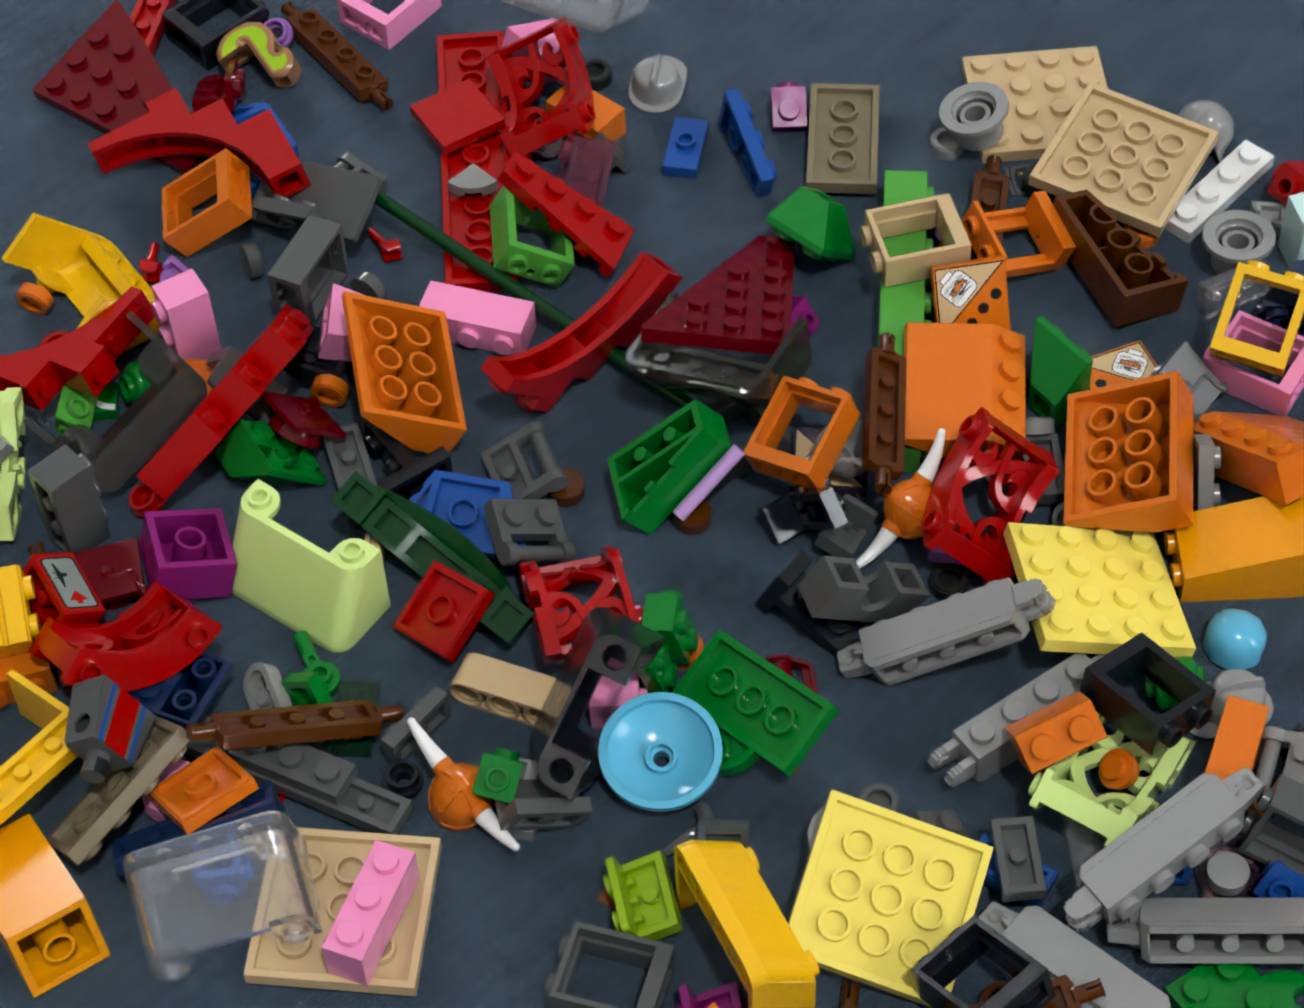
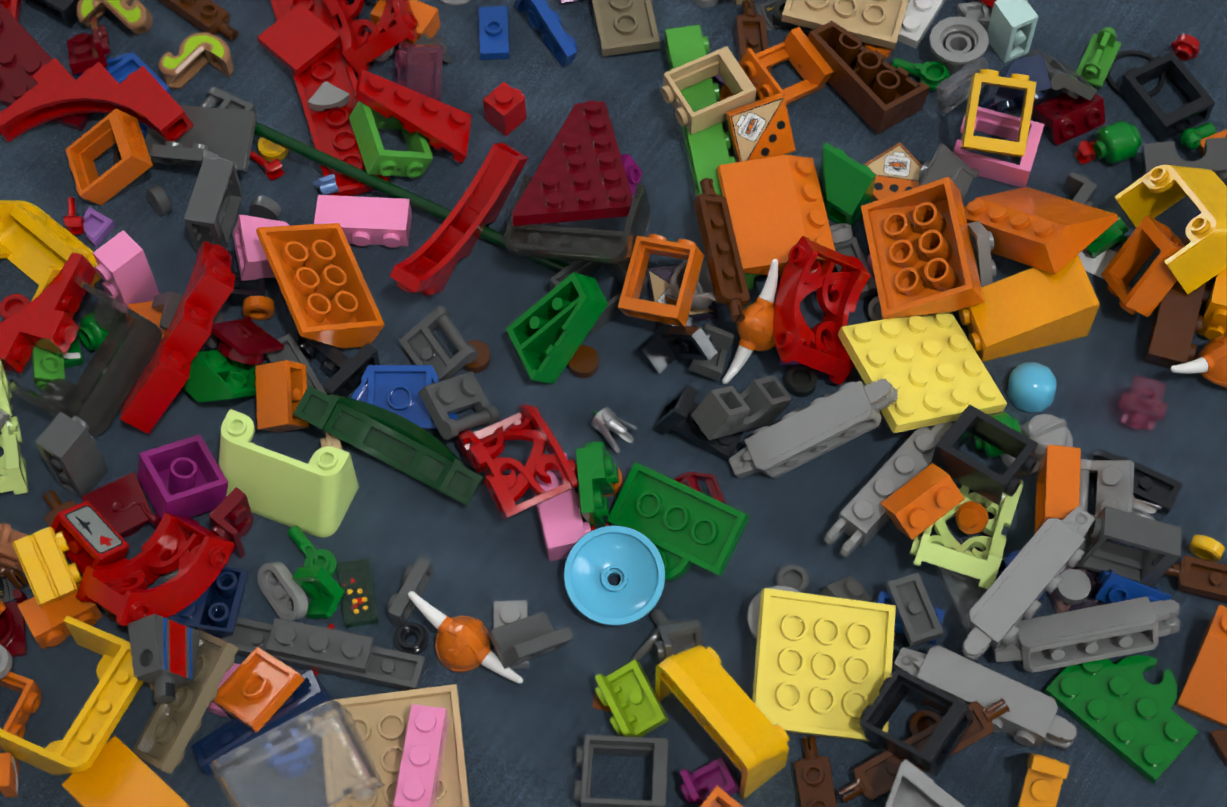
camera: 15 degrees left, 10 degrees up
(144, 499) = (124, 436): red plate -> none
(232, 605) = (233, 520): none -> dark red bracket
(295, 724) = (316, 615): reddish brown plate -> none
(320, 476) = (278, 393): none -> orange brick
(334, 117) = (193, 55): none -> medium nougat animal
(392, 228) = (270, 150): none -> yellow tile
(443, 611) = (407, 488): red tile -> none
(444, 272) = (326, 184): none -> medium blue hand
(499, 774) = (494, 624): green bracket -> none
(501, 688) = (478, 545): tan beam -> none
(562, 751) = (536, 589): black windscreen -> none
(674, 227) = (505, 108): none -> red brick
(701, 584) = (607, 420): none -> flat silver piece
(708, 482) = (594, 335): lavender piece -> none
(816, 223) = (621, 87): green slope -> none
(1194, 269) = (930, 72): none -> green plate

